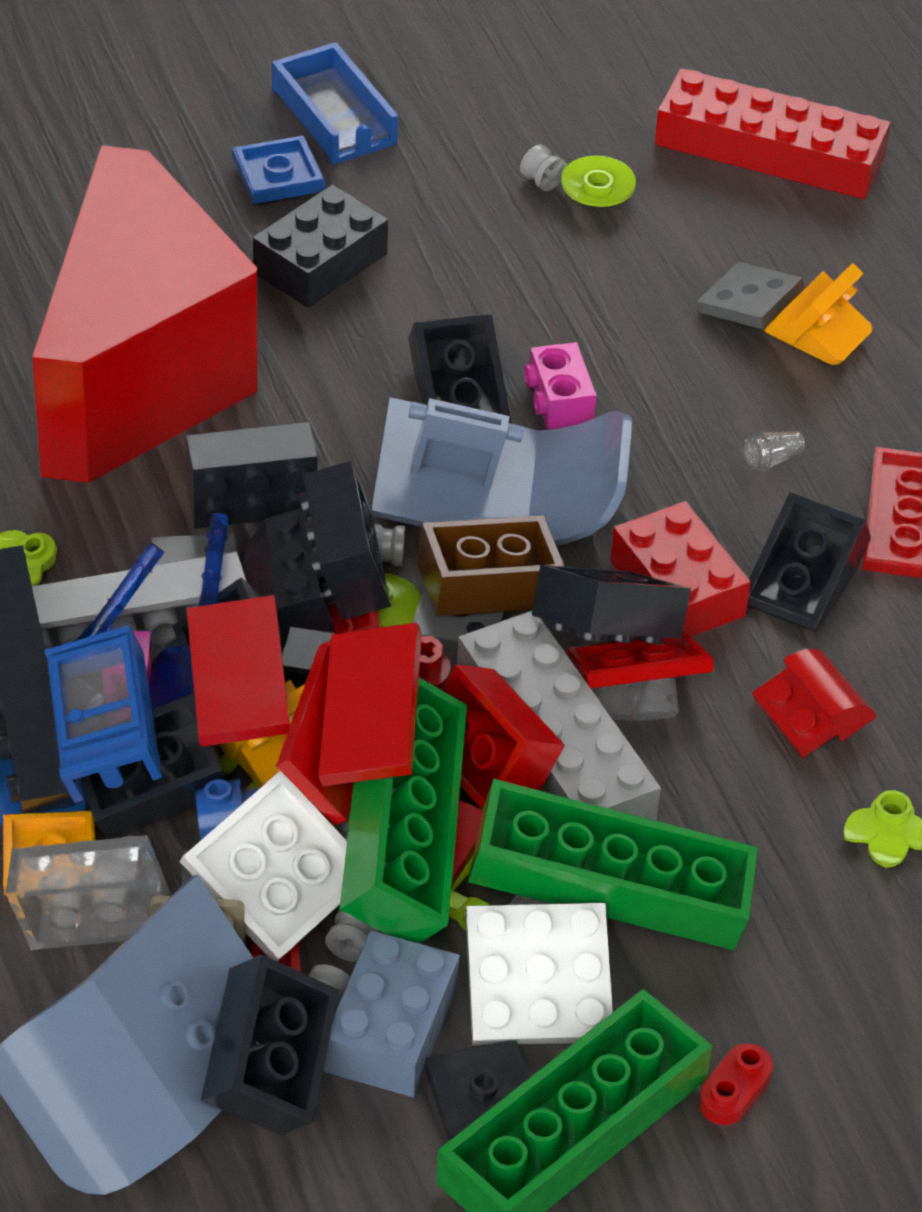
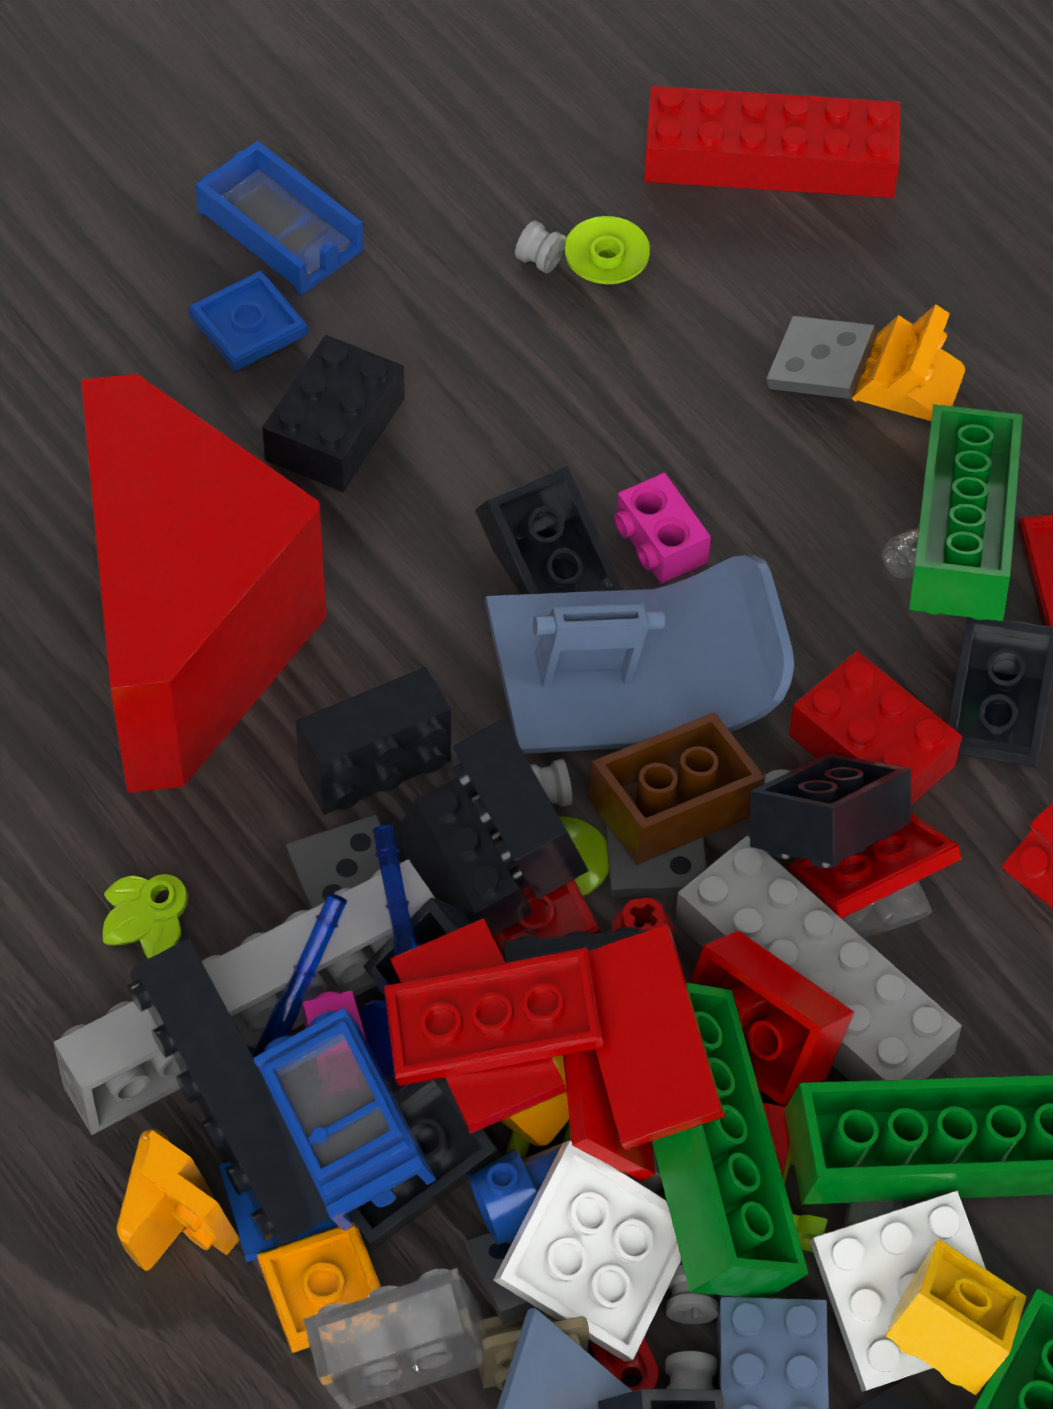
camera: 15 degrees left, 10 degrees up
(250, 661) = (493, 1016): none -> red tile
(562, 991) = (957, 1318): none -> yellow slope
(818, 420) = (967, 513): none -> green brick

